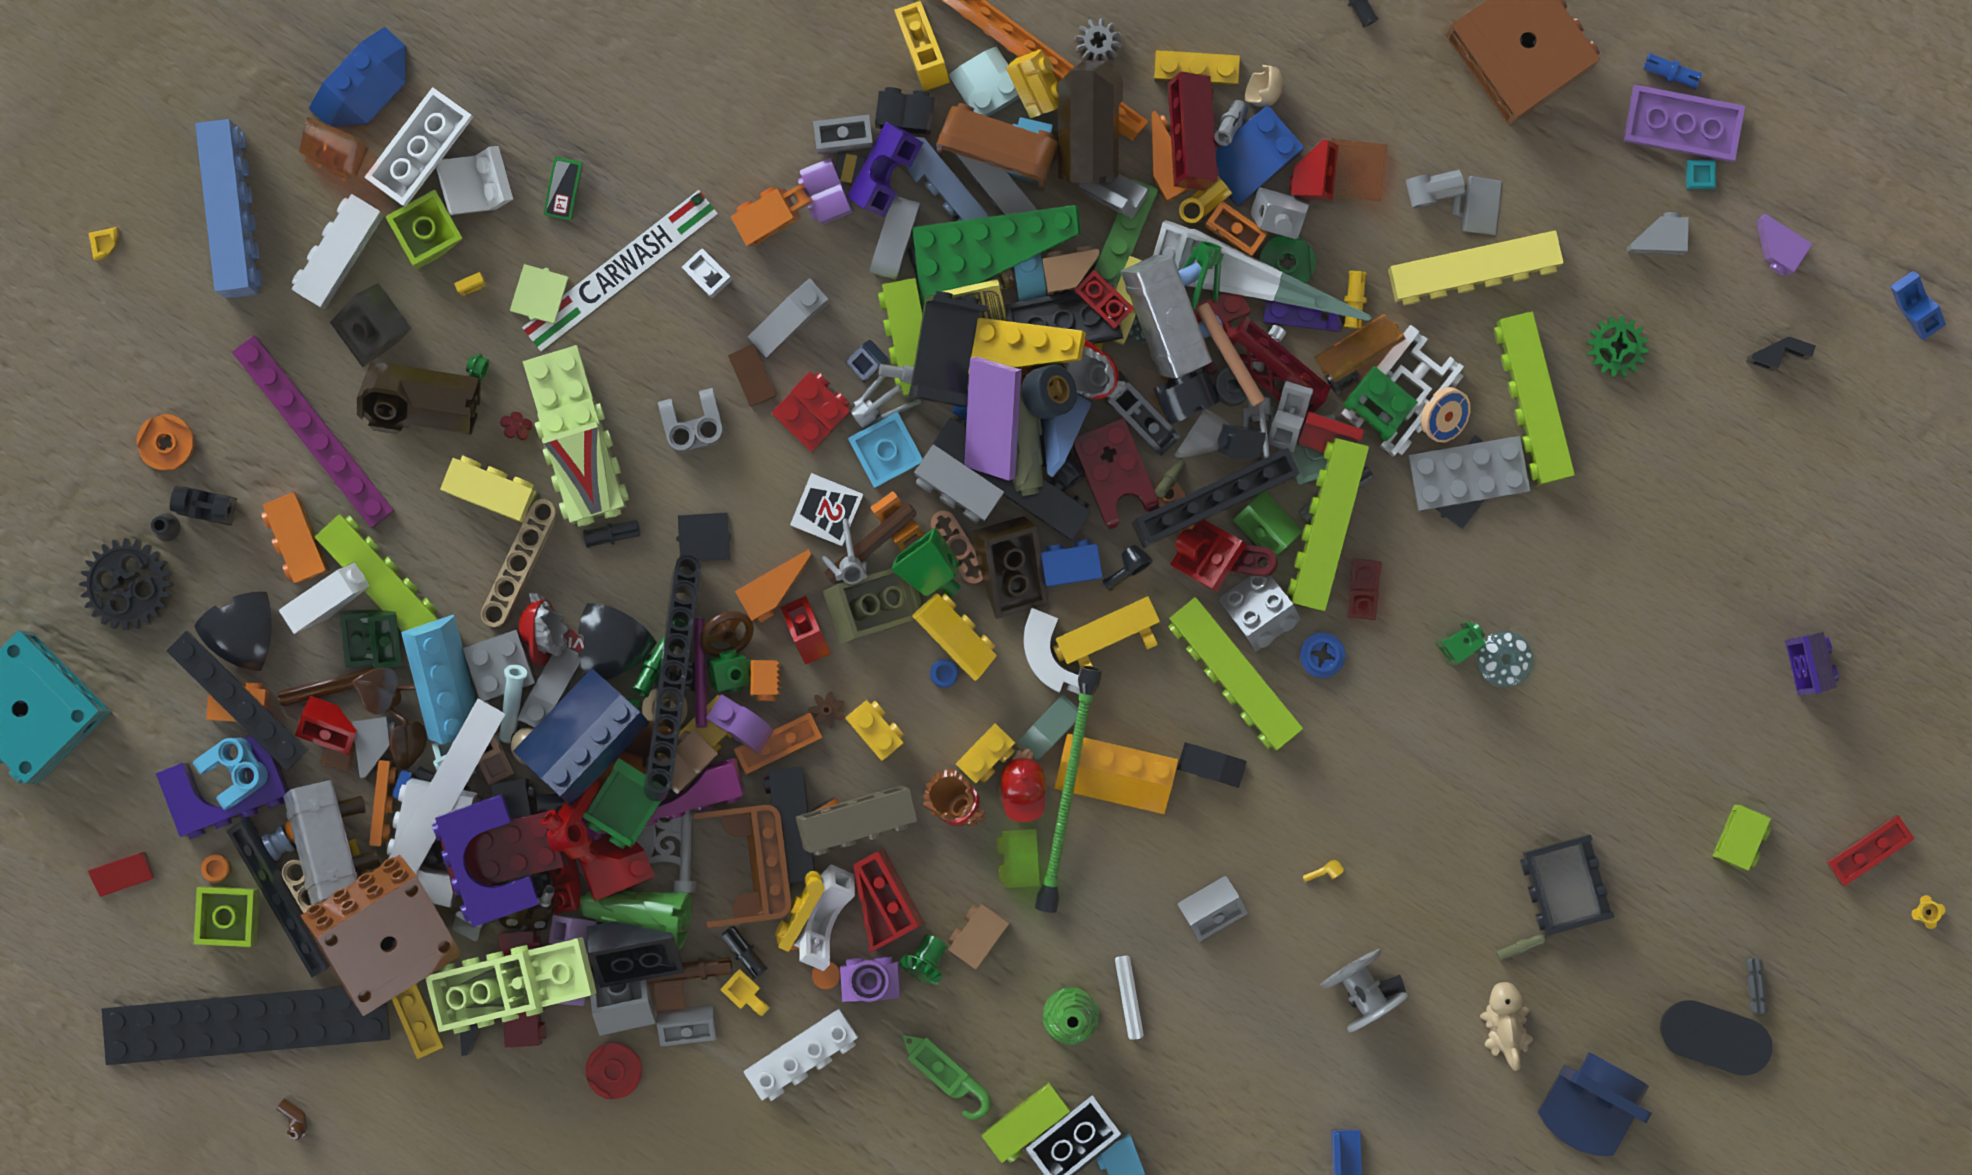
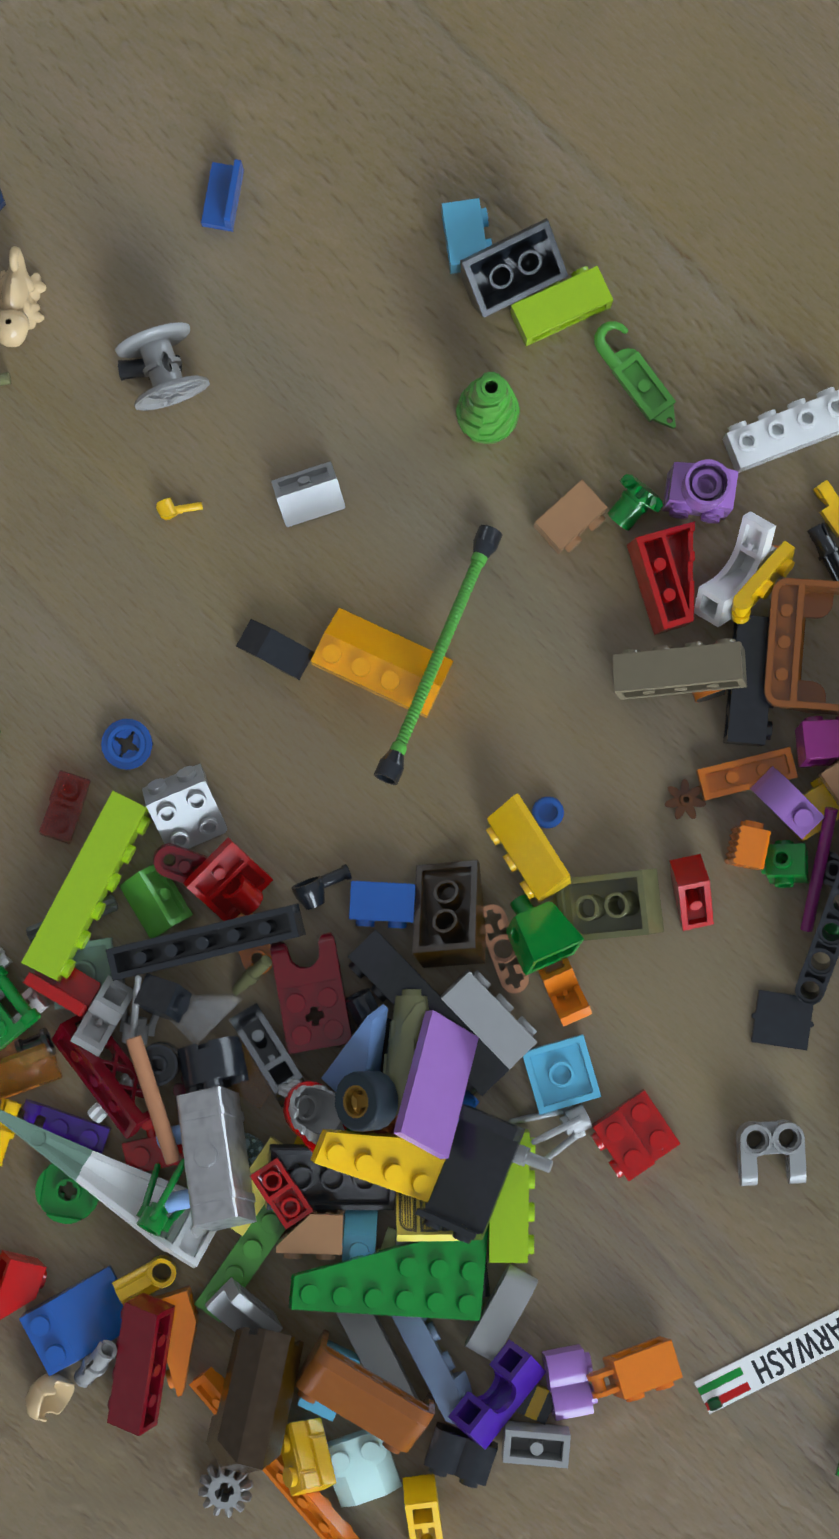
camera: 170 degrees left, 0 degrees up
(707, 273) = (720, 1316): slope -> none
(723, 629) = (782, 911): reddish brown piece -> none
(752, 375) = (692, 1190): reddish brown tile -> none
(769, 590) = (721, 945): orange slope -> none
(789, 318) = (638, 1246): light grey slope -> none
(824, 508) = (640, 1021): tile -> none
(828, 978) = (743, 505): orange tile -> none
(850, 567) = (629, 950): light grey plant -> none
(866, 360) = (561, 1180): dark blue slope -> none
(874, 730) = (637, 765): yellow brick -> none
(878, 536) = (599, 973): reddish brown axle -> none
(953, 799) = (567, 670): dark orange hair -> none
(985, 753) = (521, 713): yellow brick -> none
(1007, 279) = (385, 1239): clear orange tile -> none
(1020, 858) = (507, 592): clear neon green brick -> none
(1022, 787) = (488, 667): red hair -> none
(1038, 653) = (439, 807): white arch -> none
(1050, 727) = (444, 727): sand green slope -> none
(1107, 631) = (357, 820): yellow brick -> none
(1129, 997) = (420, 417): white axle -> none
(1221, 68) = (92, 1428): yellow plate -> none
(1235, 229) = (117, 1240): orange brick -> none
(1235, 674) = (227, 743): lime brick -> none
(1281, 212) = (60, 1248): light grey torso -> none

